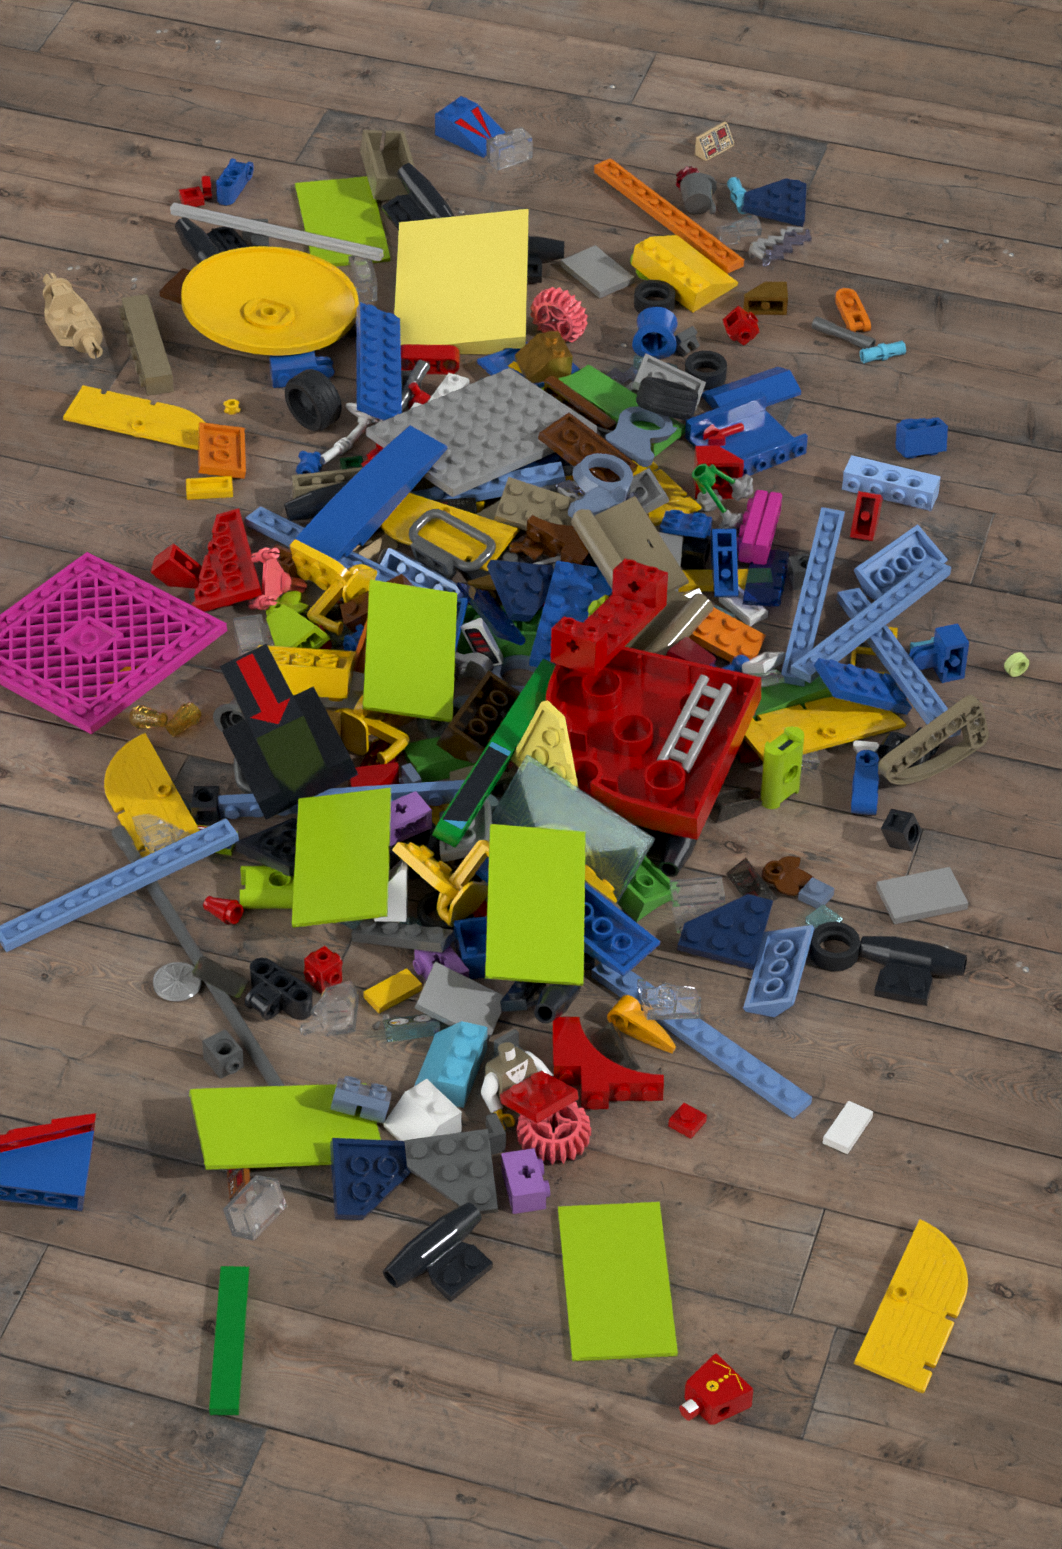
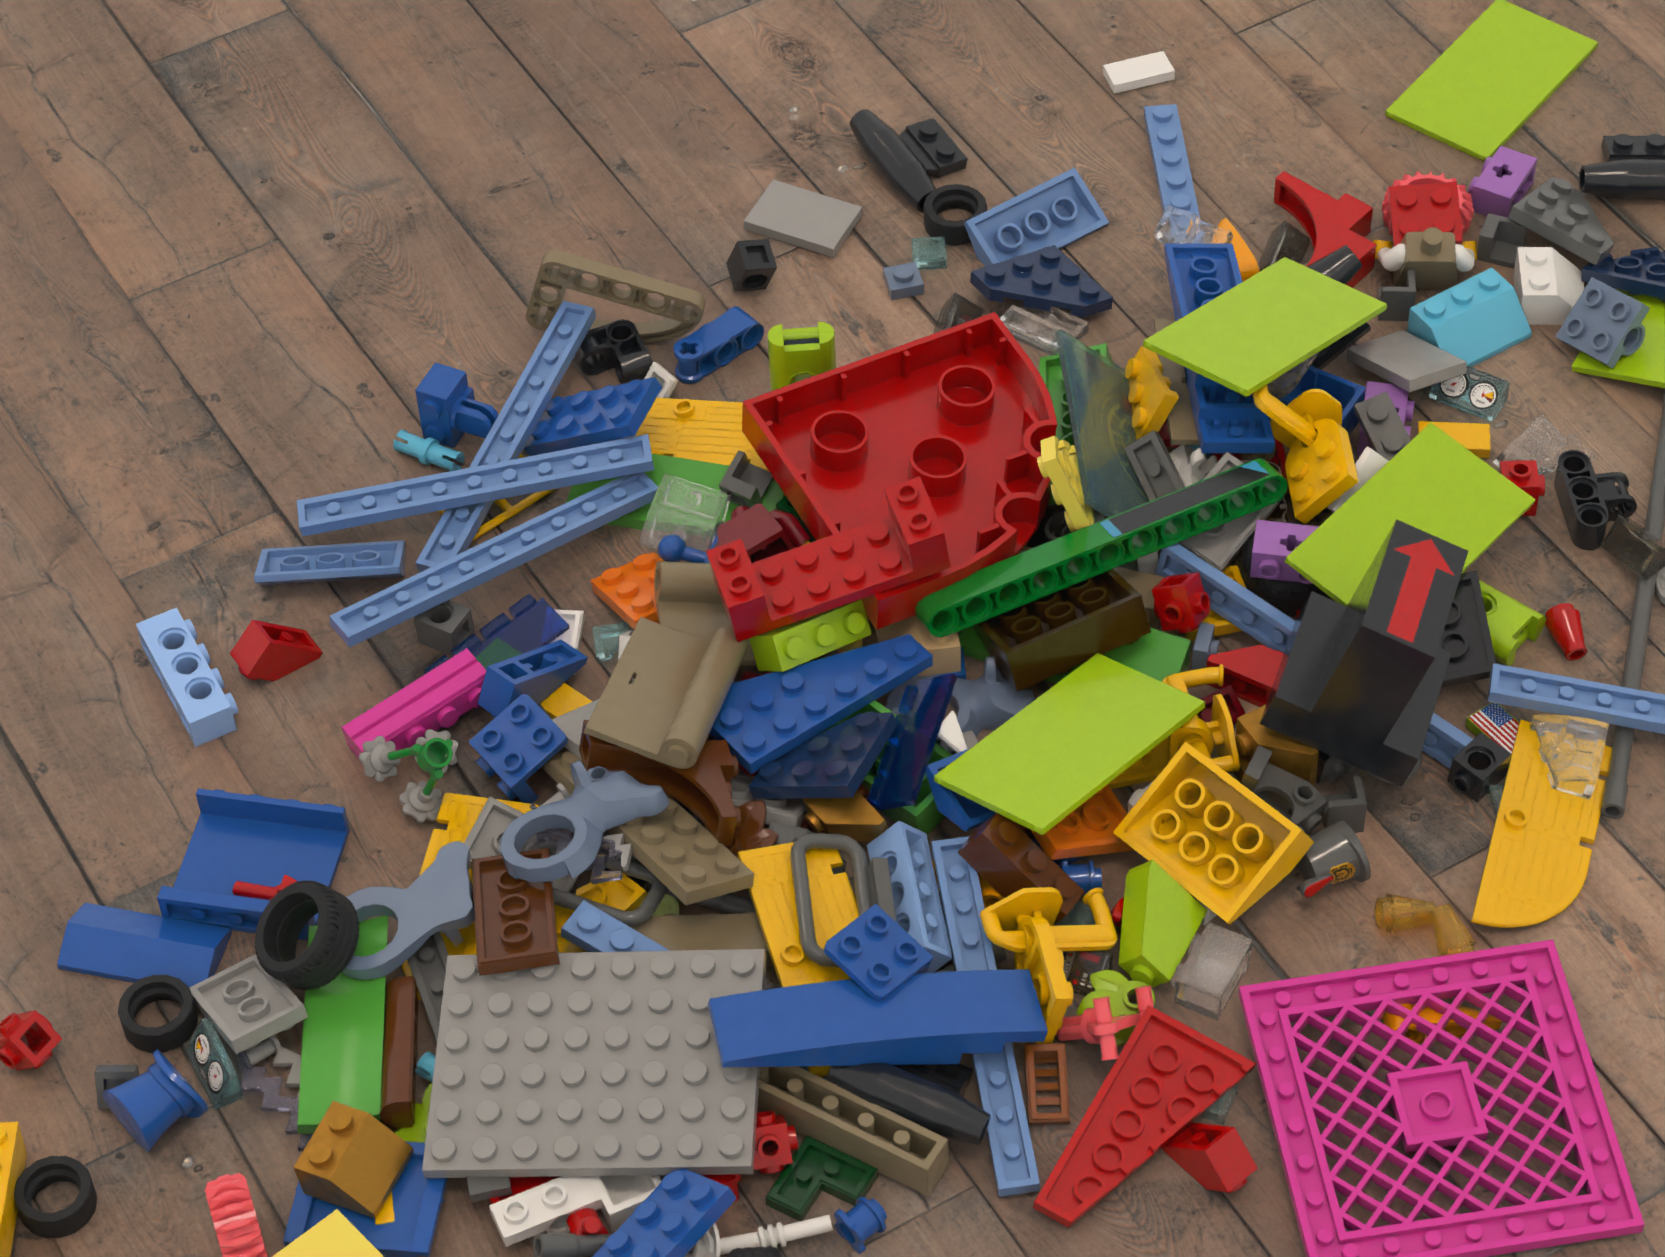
camera: 135 degrees left, 5 degrees up
(395, 512) = (877, 953): none -> blue bracket
(437, 767) = (1181, 602): none -> red brick
(687, 1120) = (1281, 158): red plate -> none
(691, 710) = (860, 420): light grey bar -> none
(724, 462) = (382, 810): red slope -> none
(763, 662) = (644, 532): white tile -> none
(786, 875) = (912, 315): reddish brown plate -> none
(921, 437) = (65, 706): blue brick -> none
(1016, 664) = (382, 371): yellowish green tile -> none

